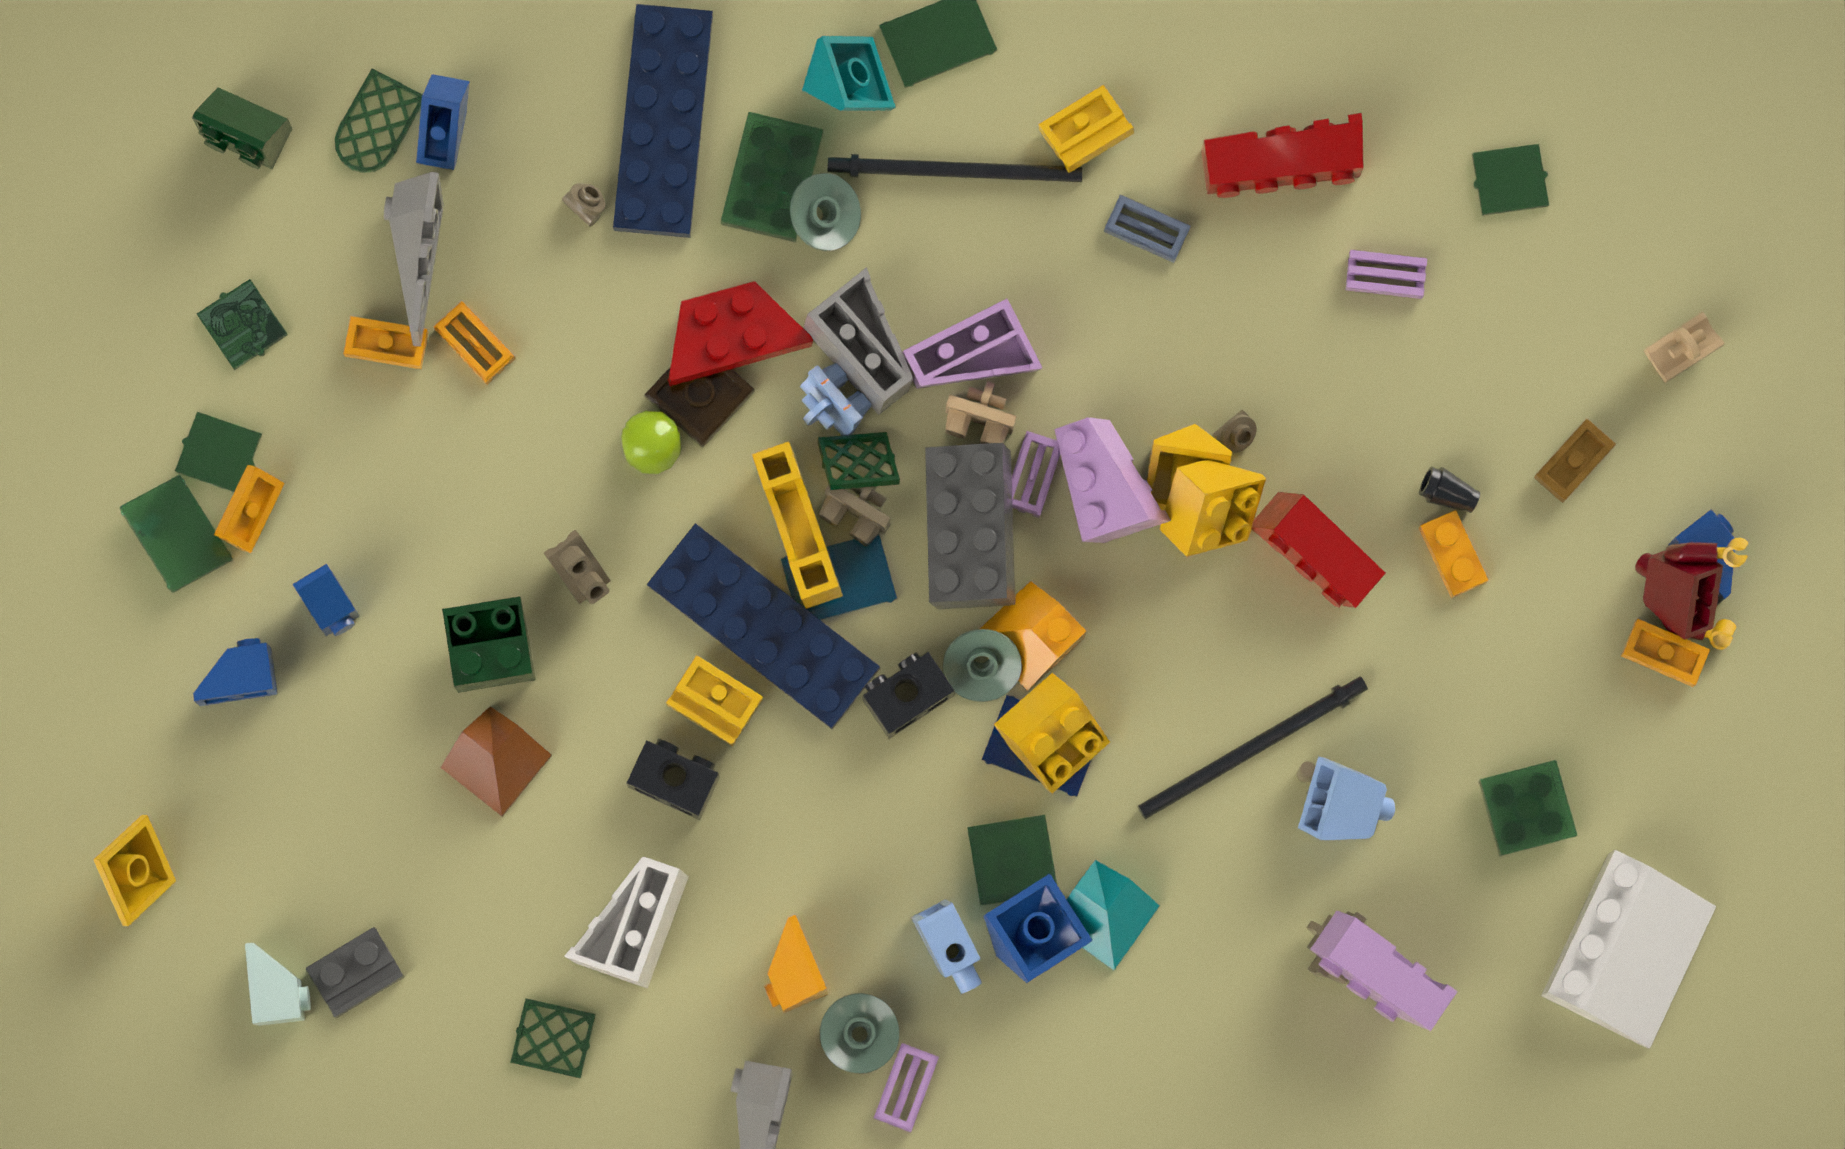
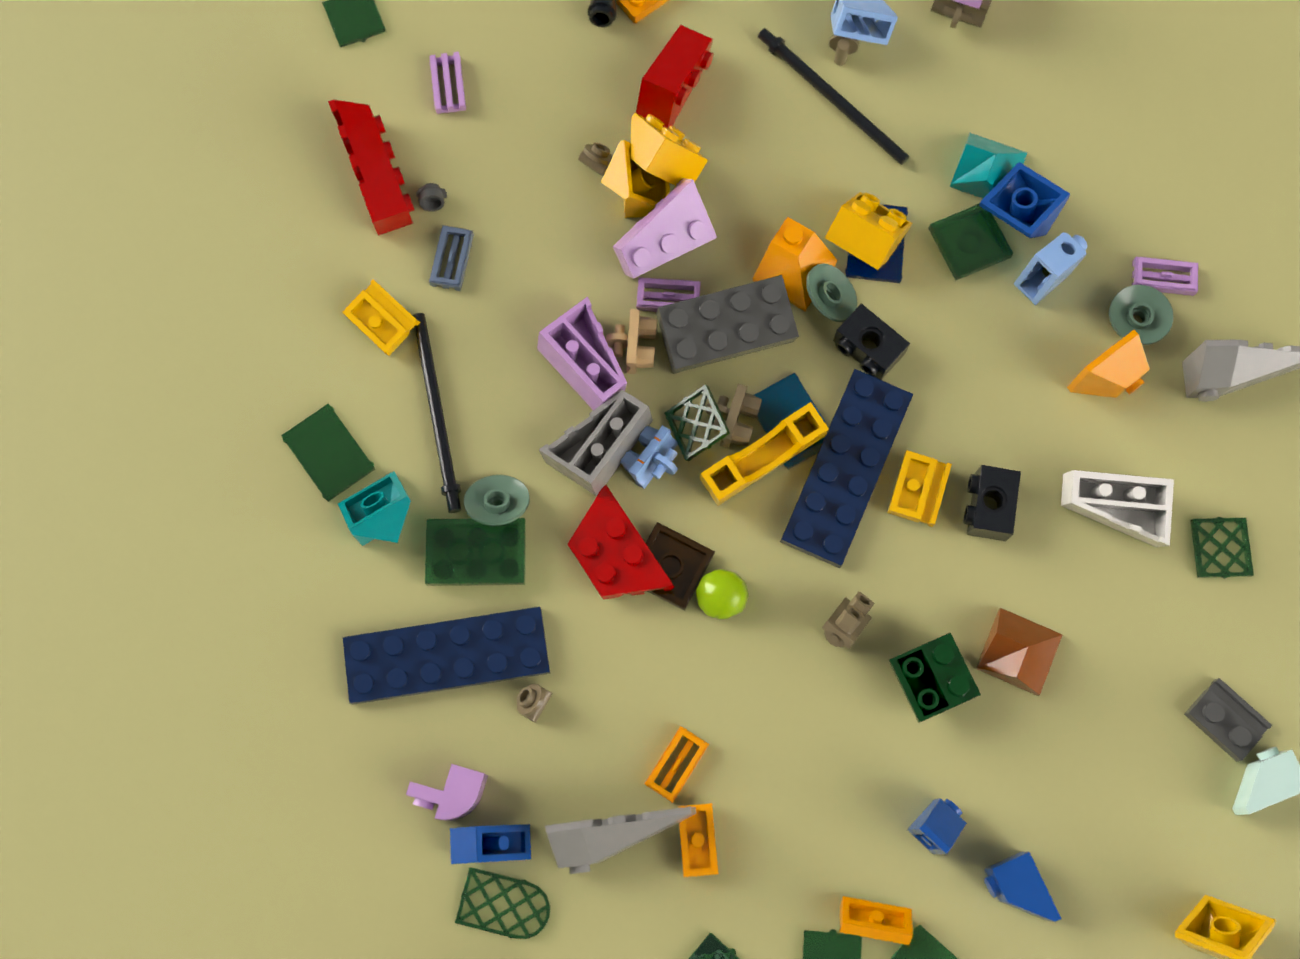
camera: 100 degrees left, 5 degrees down
(501, 97) = (459, 797): none -> lavender brick
(1231, 220) = (431, 197): none -> dark grey plate

